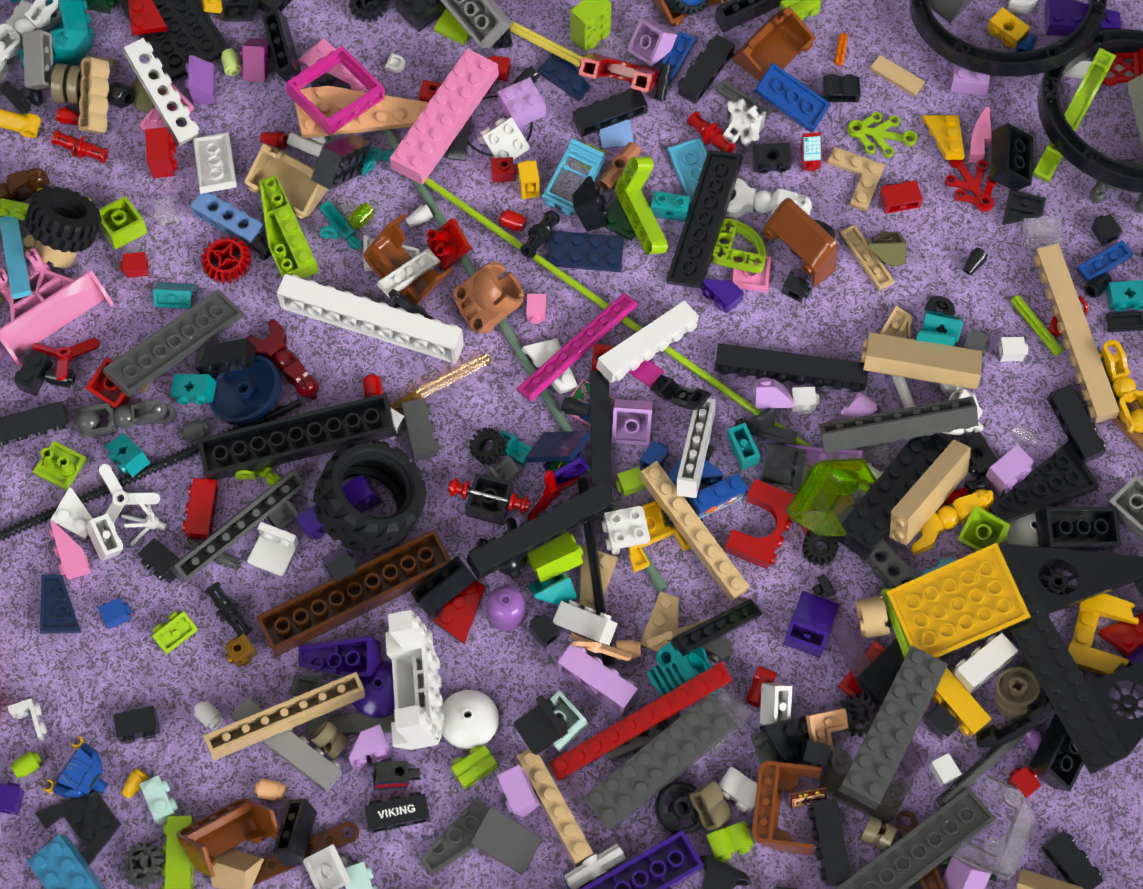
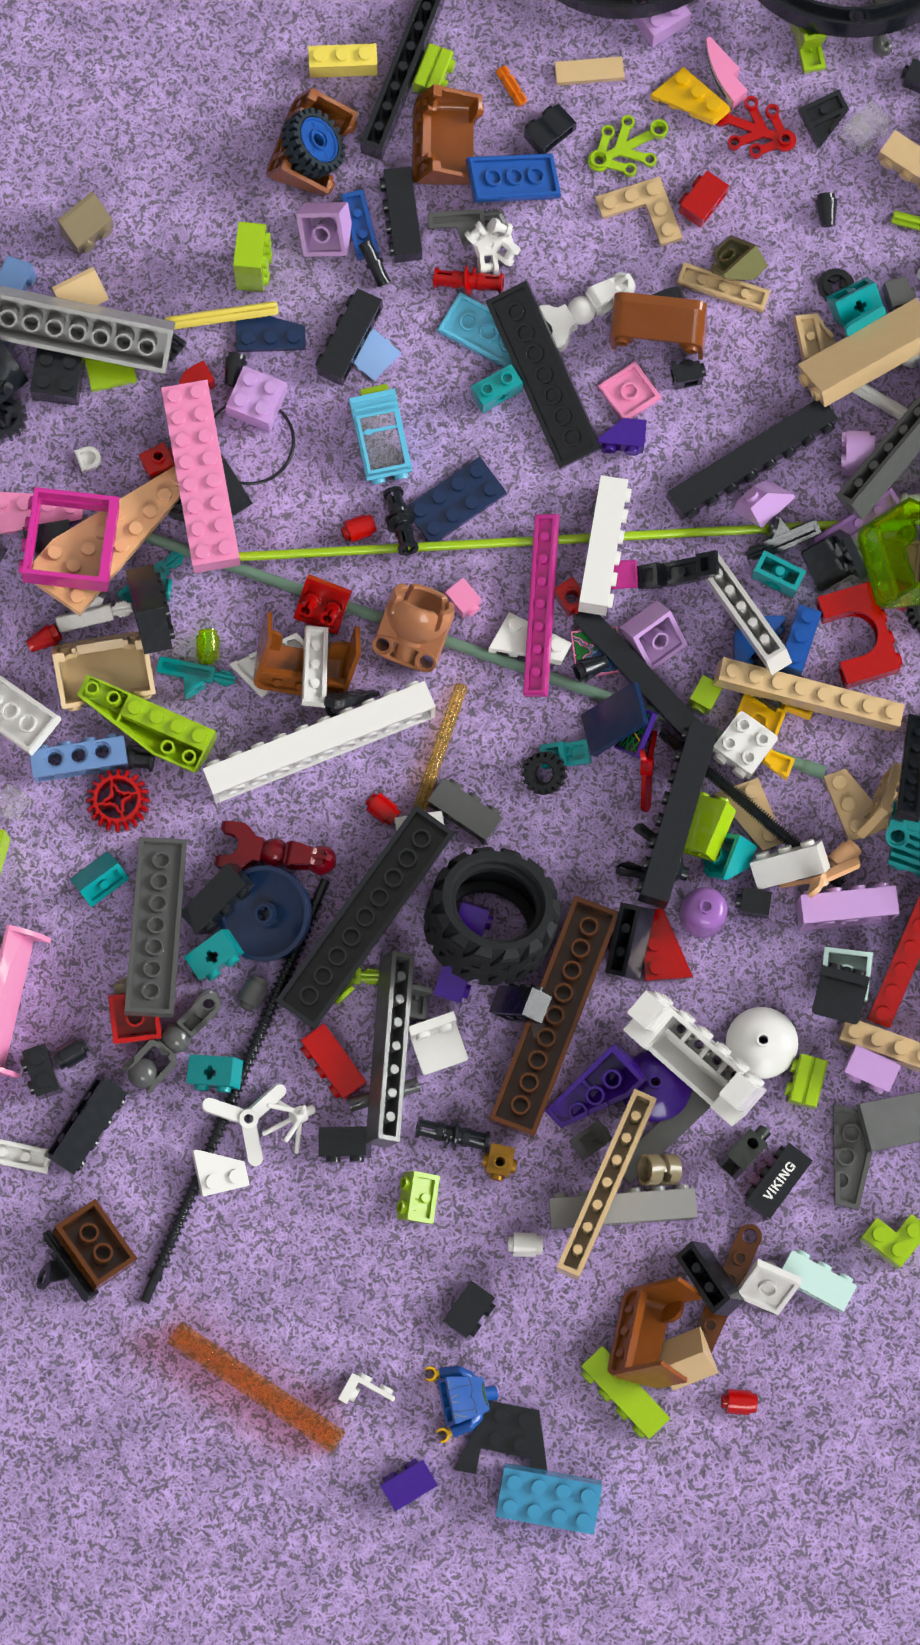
camera: 45 degrees left, 10 degrees up
(26, 764) = (403, 1434): lime brick -> none
(56, 608) = (287, 1272): dark blue wing -> none
(59, 465) = (156, 1138): lime plate -> none
(66, 354) = (56, 1022): red piece -> none
(72, 557) = (255, 1211): bright pink slope -> none
(104, 537) = (271, 1168): white brick -> none
(115, 613) = (348, 1228): blue brick -> none
(133, 782) = (518, 1363): yellow cone -> none
(135, 265) = (33, 882): red brick -> none
(142, 864) = (591, 1434): dark grey gear -> none
(158, 800) = (556, 1358): light aqua brick -> none
(270, 790) = (646, 1261): light nougat brick -> none
(369, 748) = (702, 1144): lavender slope -> none
(419, 216) = (264, 597): white cone -> none
(489, 498) = (594, 822): black brick -> none
(503, 169) = (301, 483): red brick -> none
(504, 139) = (272, 452): white bracket -> none
(506, 470) = (581, 783): dark grey bracket -> none
(528, 179) = (339, 473): yellow brick -> none
(590, 205) = (424, 451): black slope -> none
(612, 173) = (411, 399): nougat piece -> none
(618, 221) = (459, 441): dark green wing -> none
(636, 206) = (470, 417): lime beam -> none
(639, 76) = (347, 274): red arch -> none
(654, 452) = (705, 652): blue brick -> none
(729, 254) = (596, 391): lime beam -> none
(777, 151) = (553, 246): black brick -> none
(804, 399) = (793, 478): white brick -> none
(810, 151) = (582, 222): slope -> none
(1011, 157) = (775, 73): black brick -> none

